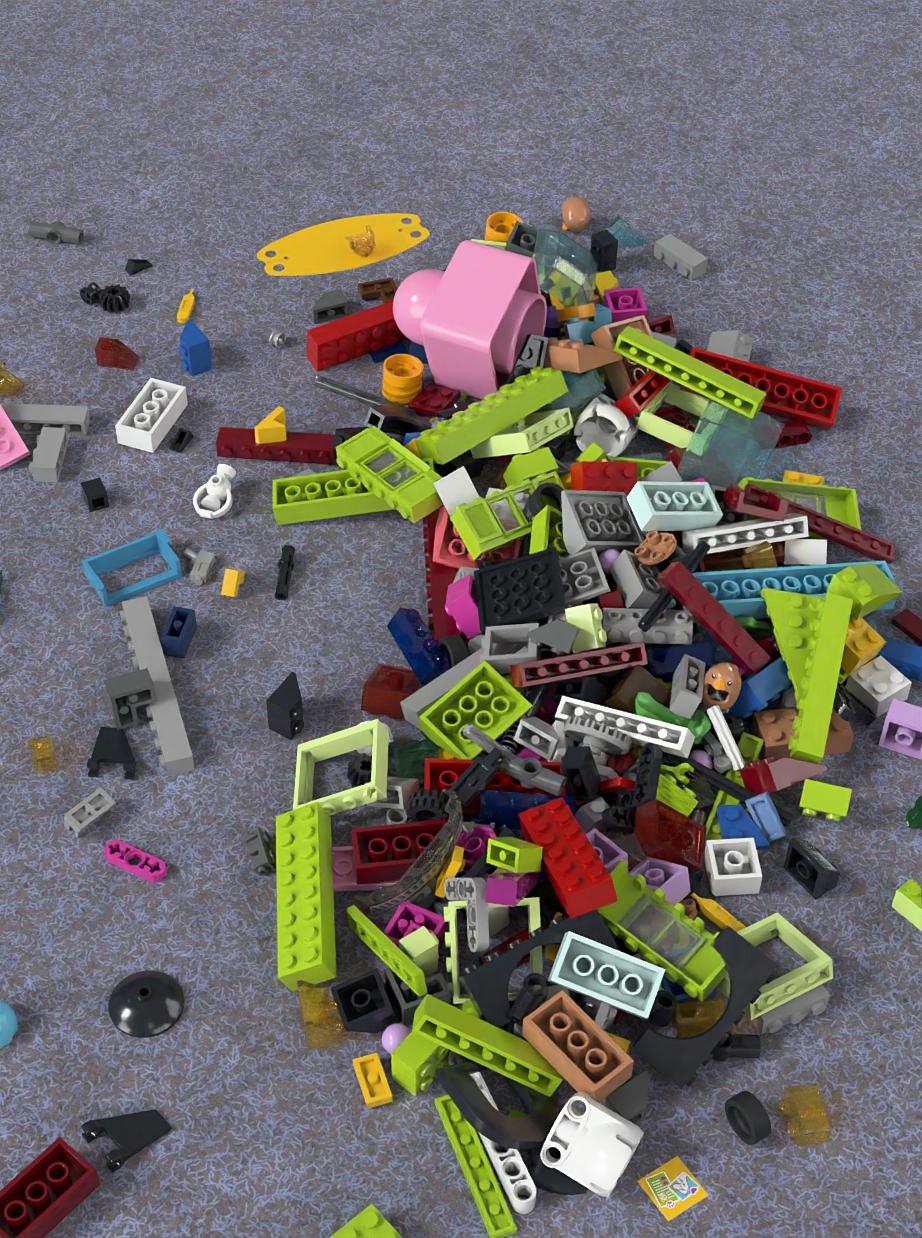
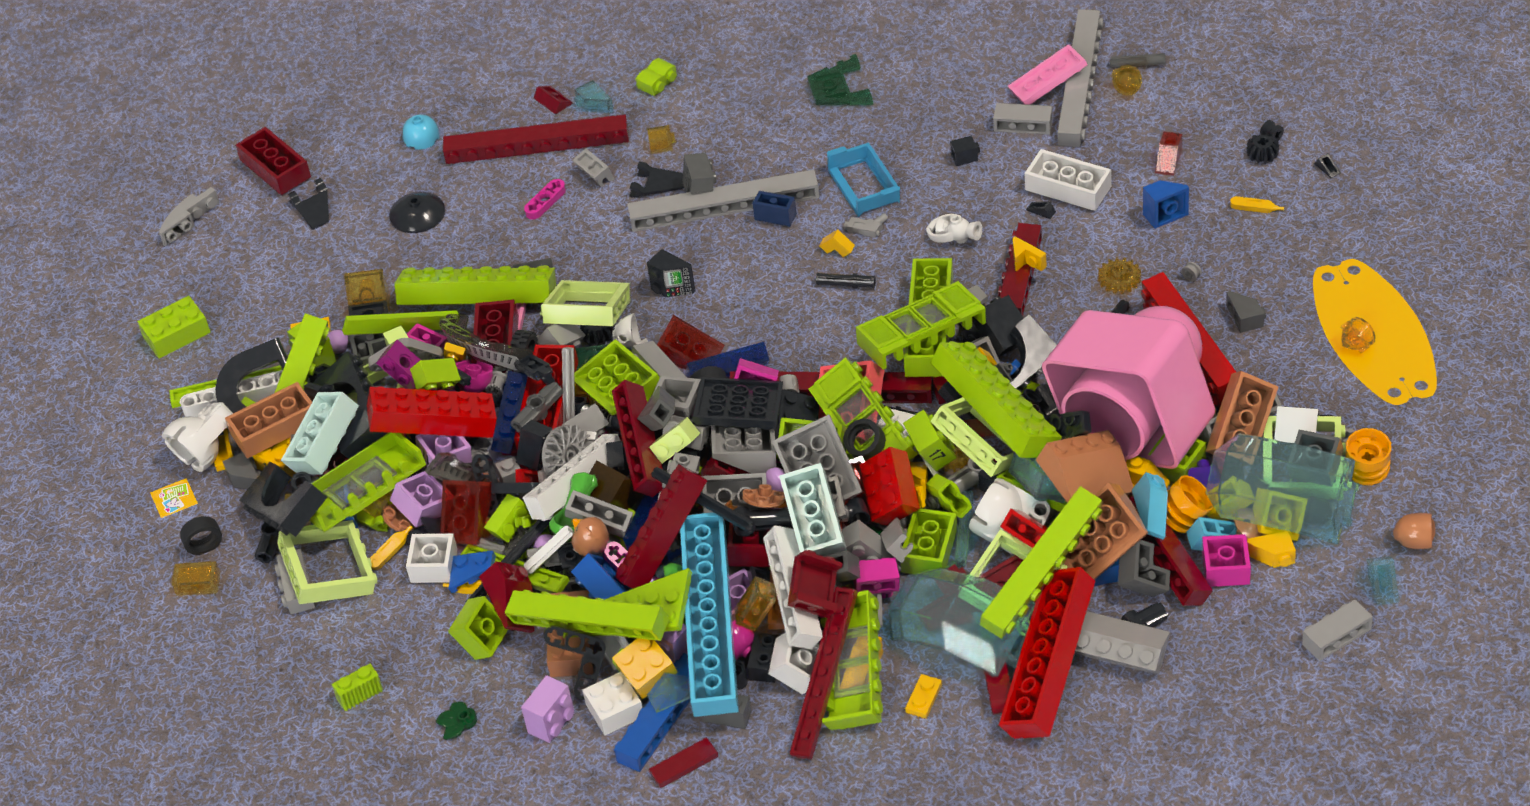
camera: 105 degrees right, 0 degrees up
(27, 888) = (535, 139): none -> dark red brick
(55, 232) = (1380, 100): dark grey piece -> none
(283, 381) = (1119, 275): none -> clear yellow gear
(379, 288) = (1276, 358): reddish brown plate -> none
(456, 489) = (877, 362): white sticker -> none
(604, 250) = (1332, 547): black brick -> none
(766, 816) = (470, 588): medium blue tile -> none
(810, 868) = (416, 611): black slope -> none
(866, 587) = (686, 662): lime slope -> none

